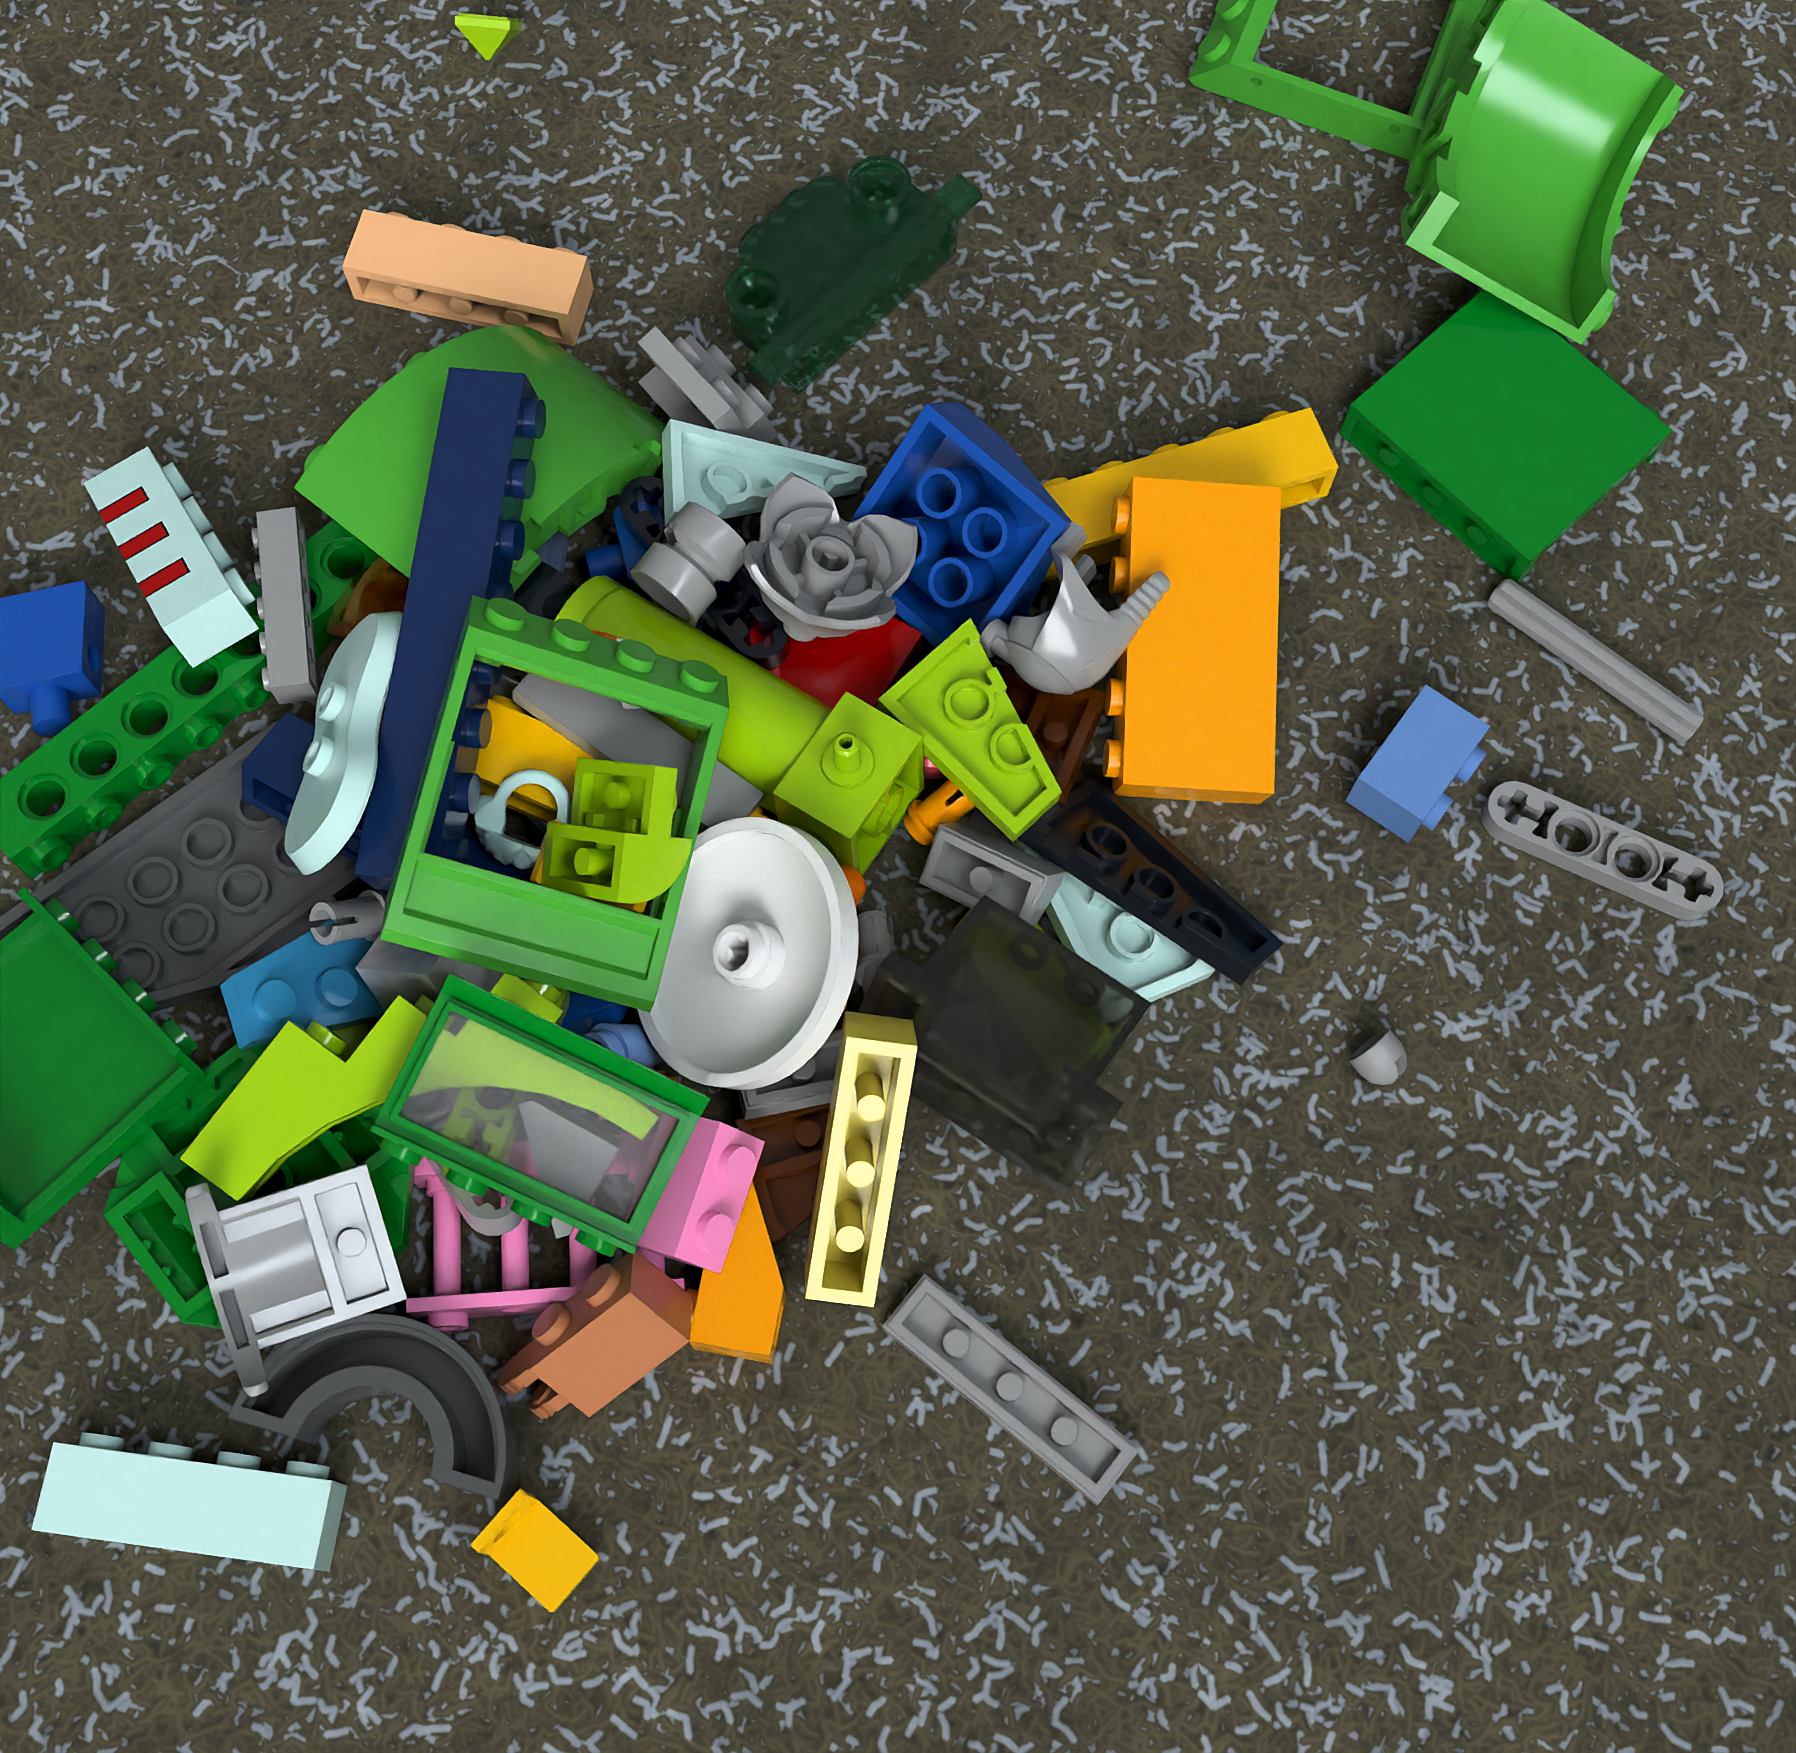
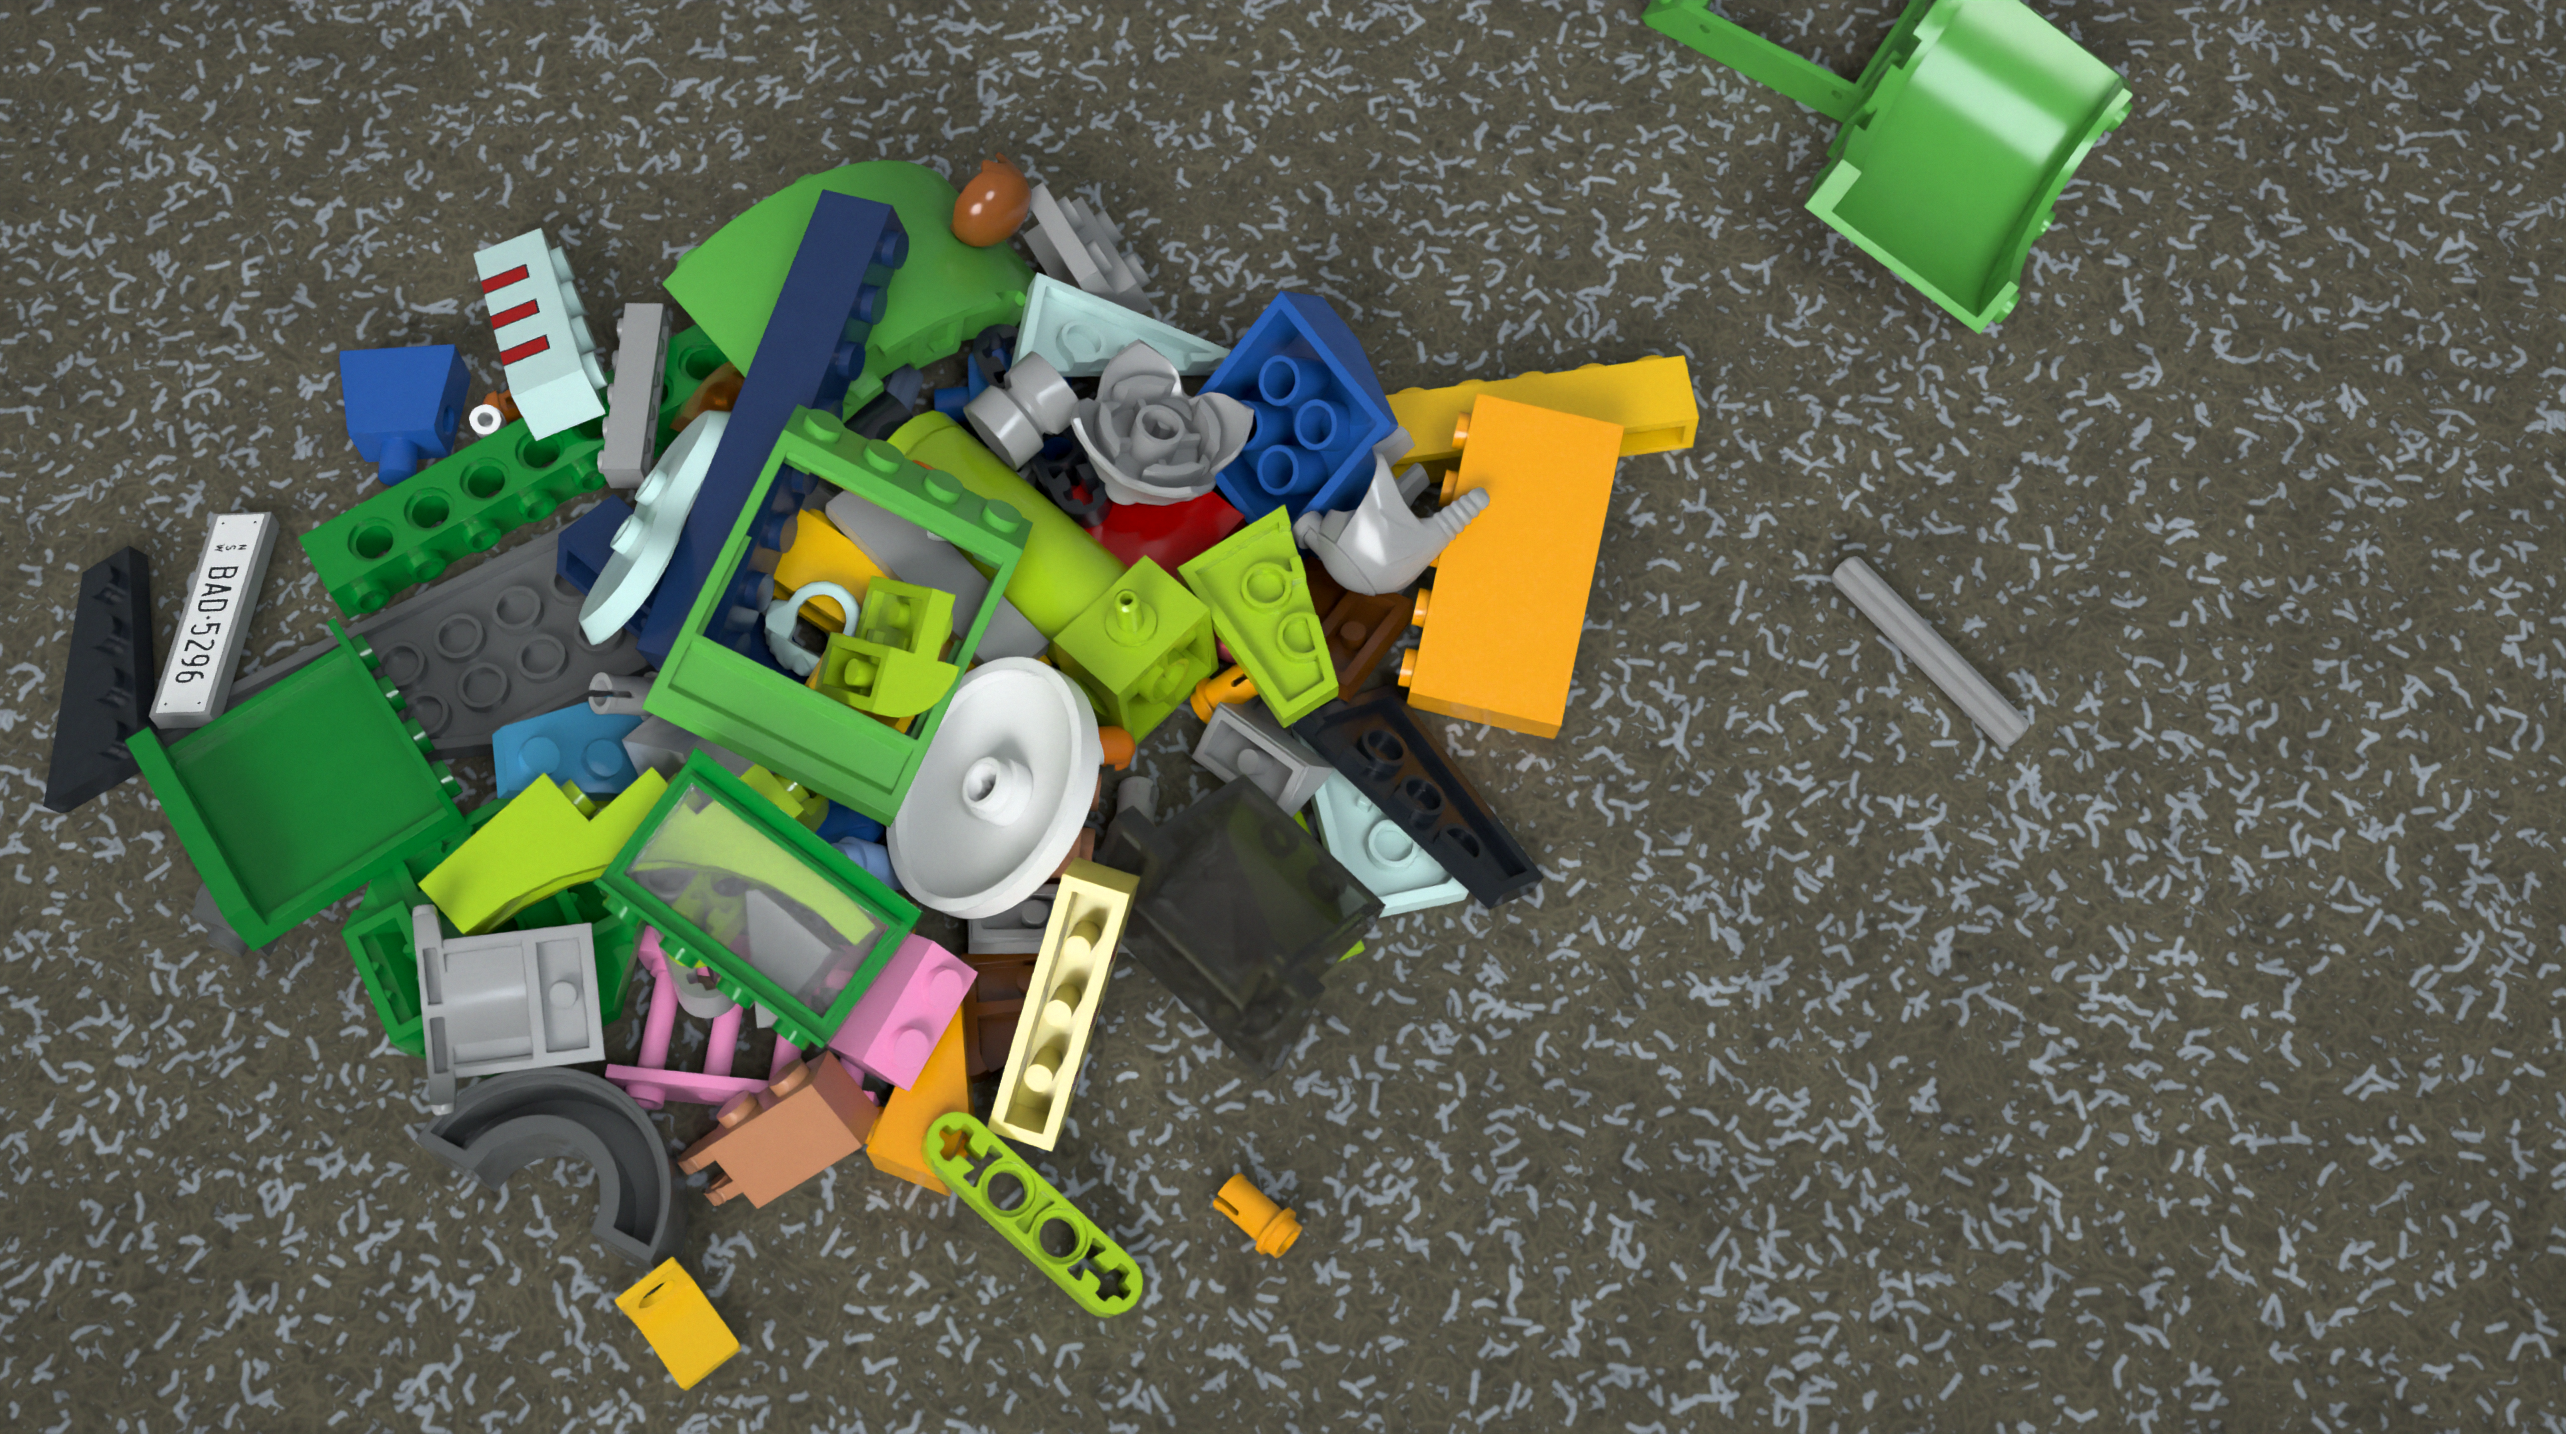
camera: 15 degrees right, 5 degrees down
(140, 643) = (494, 413): none -> arm
(190, 1504) = (368, 1223): light aqua brick -> none
(468, 275) = (881, 110): light nougat brick -> none
(612, 356) = (992, 204): none -> dark orange hair
(838, 265) = (1244, 151): clear green brick -> none
(862, 1381) = (1024, 1224): none -> lime beam
(1011, 1389) = (1176, 1262): light grey tile -> none
(1082, 1329) = (1258, 1216): none -> light orange pin
(1380, 1058) = (1617, 1007): light grey hinge -> none
(1418, 763) = (1718, 723): medium blue brick -> none
(1502, 432) = (1881, 409): green panel -> none
(1603, 840) = (1898, 831): light grey beam -> none

